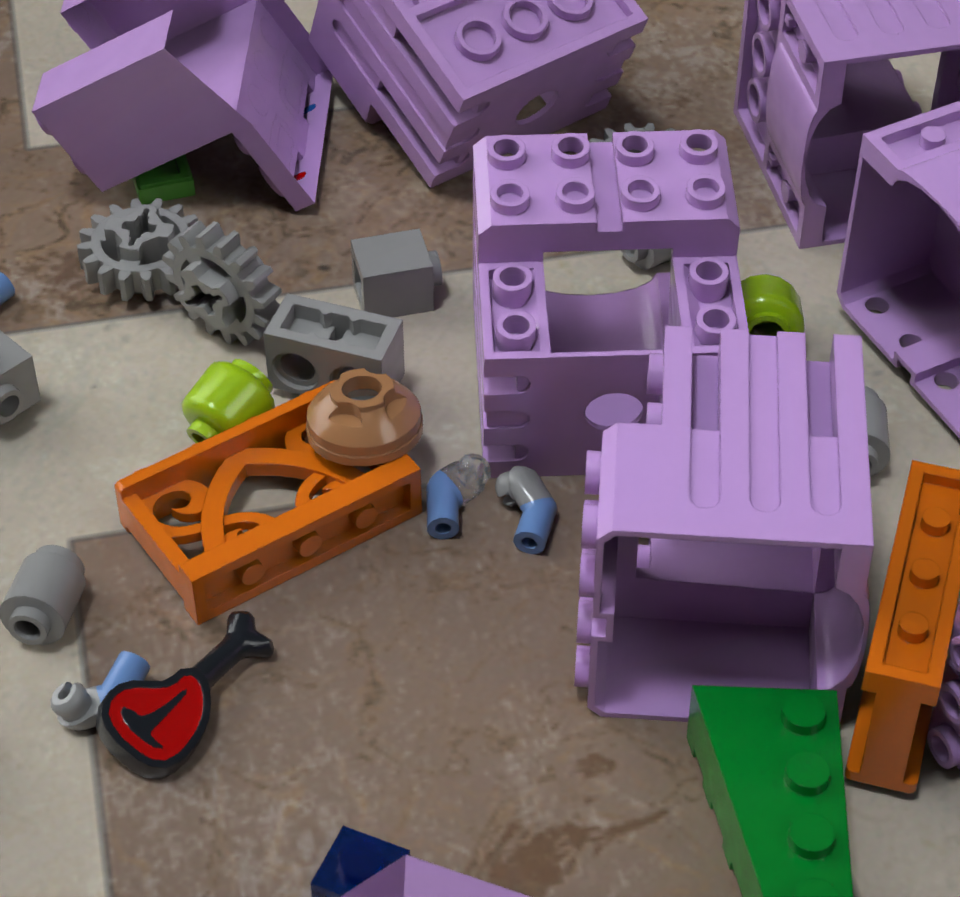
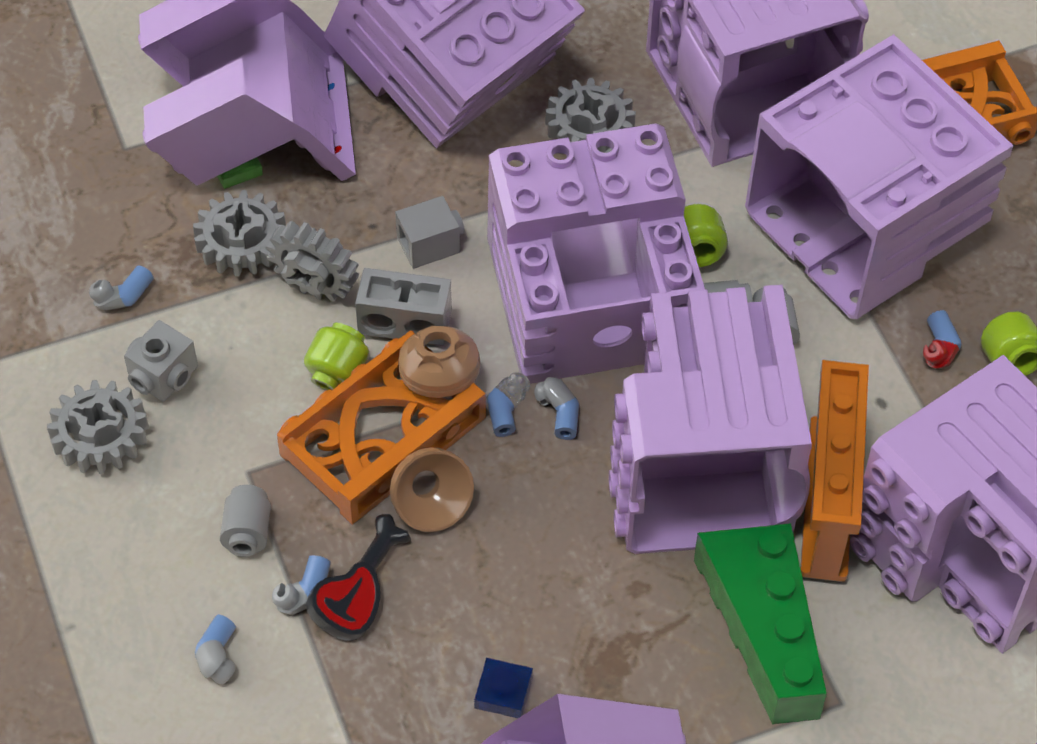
camera: 10 degrees left, 10 degrees up
(339, 607) = (446, 500): none -> medium nougat piece

